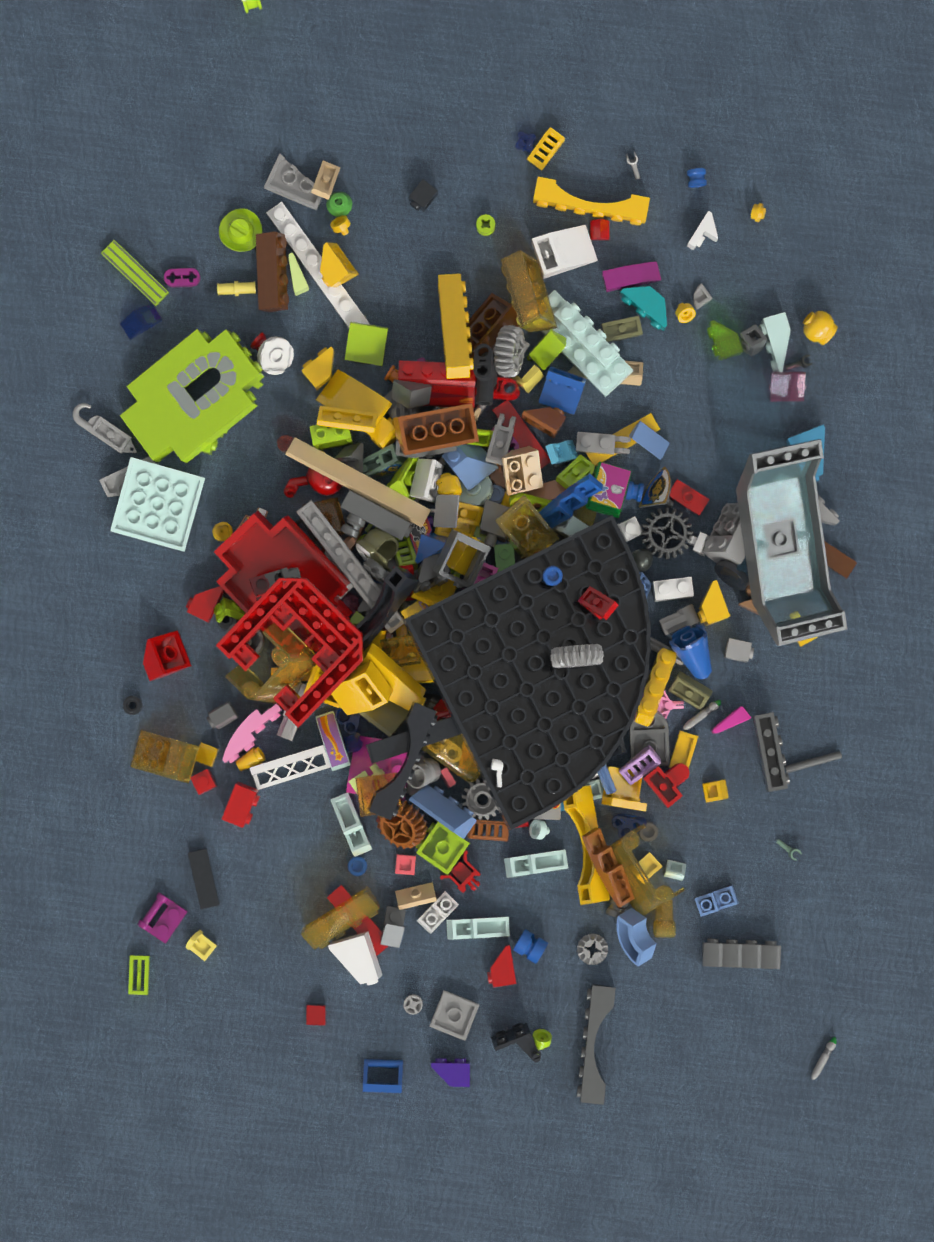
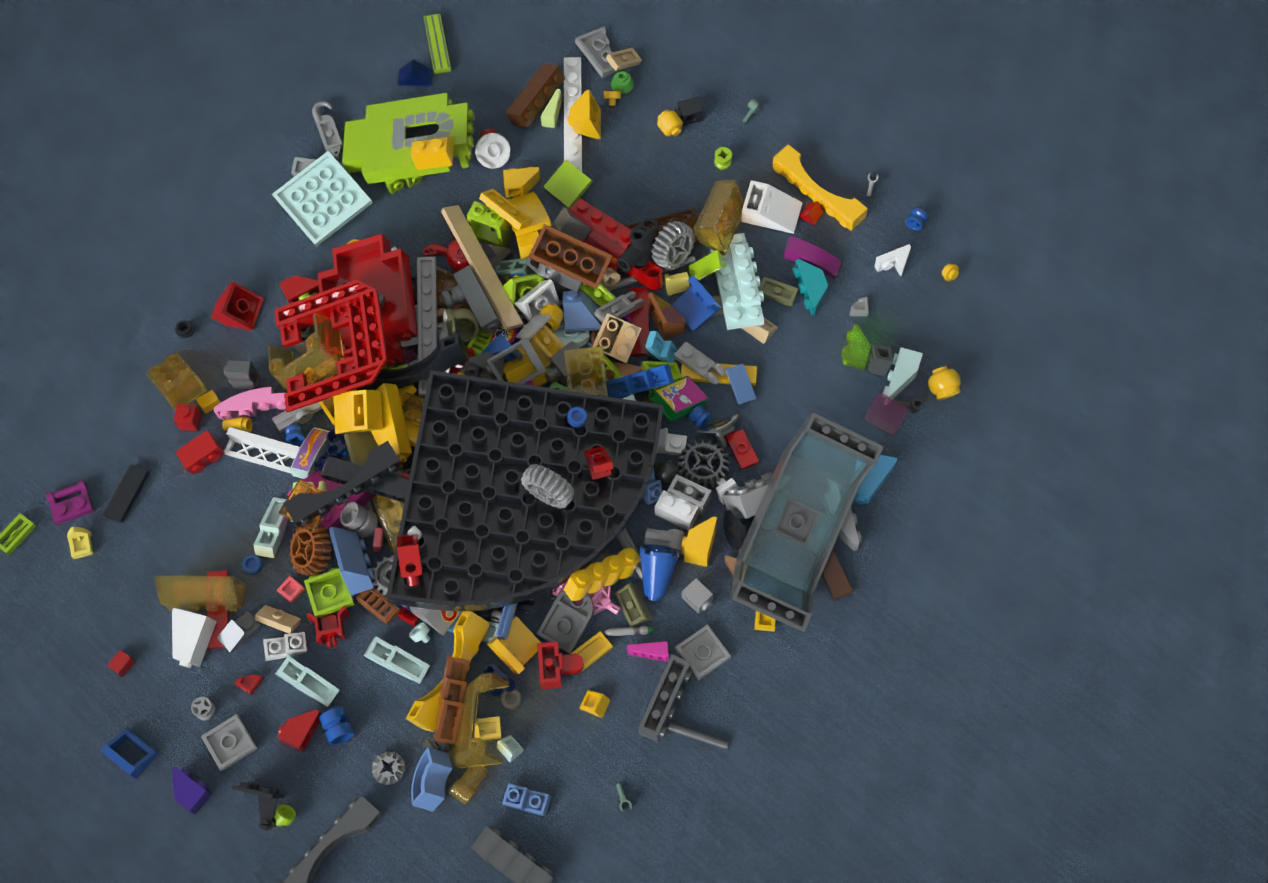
camera: 35 degrees right, 20 degrees down
(182, 272) = (466, 67): magenta beam -> none
(236, 288) = (500, 92): light yellow pin -> none
(237, 402) = (433, 152): none -> yellow slope
(239, 230) = (533, 57): lime hat -> none
(308, 736) = (292, 431): none -> blue wheel
(414, 220) = (670, 123): none -> yellow head
(431, 960) = (249, 683): none -> red tile
(454, 326) = (642, 201): yellow brick -> none
(476, 150) = (754, 108): none -> sand green hand
(516, 794) = (408, 553): none -> red torso
(525, 146) = (796, 125): clear blue plate -> none
(550, 132) = (812, 139): yellow slope -> none
(643, 770) = (561, 633): lavender slope -> none
(674, 568) = (690, 492): none -> light grey brick
(685, 312) = (838, 309): yellow tile -> none
(772, 692) = (703, 652): none -> light grey tile

